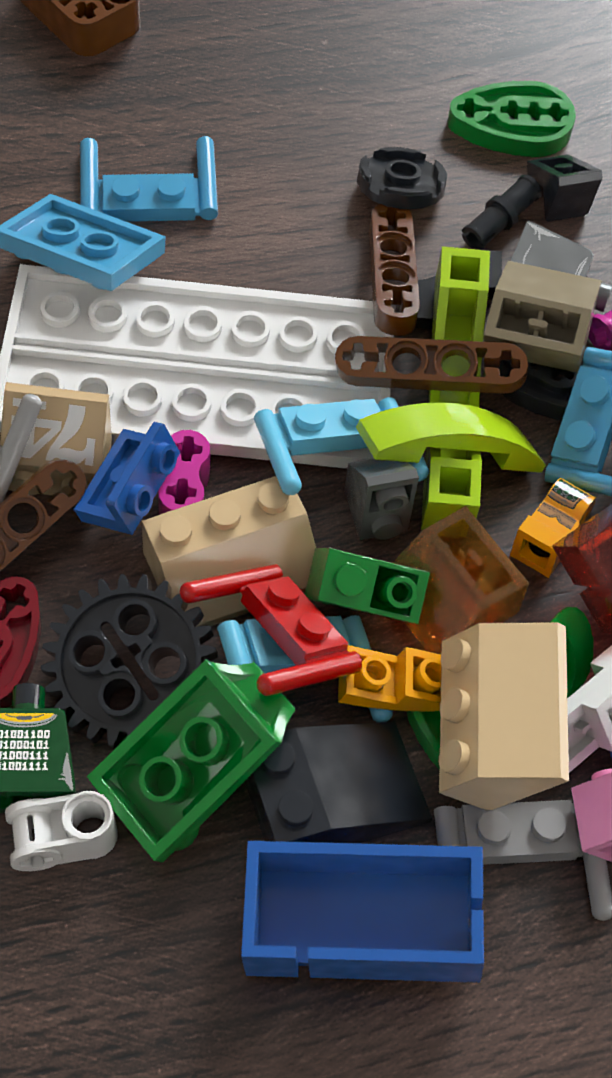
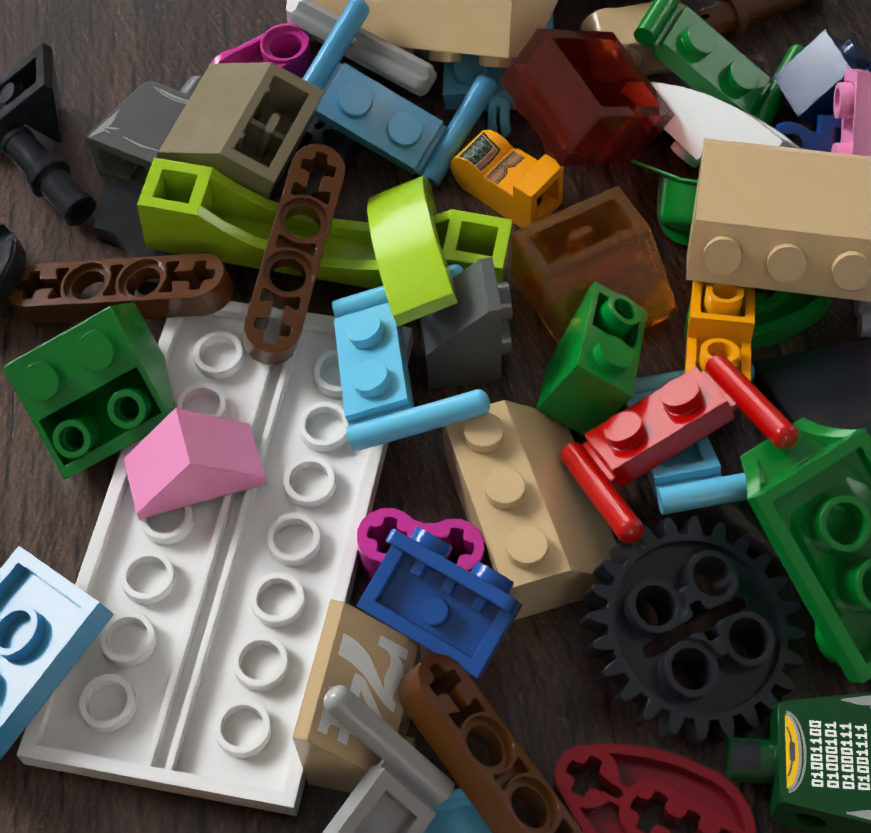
camera: 75 degrees left, 0 degrees up
(241, 330) = (192, 461): none -> bright pink slope
(298, 260) = (94, 387): none -> green slope

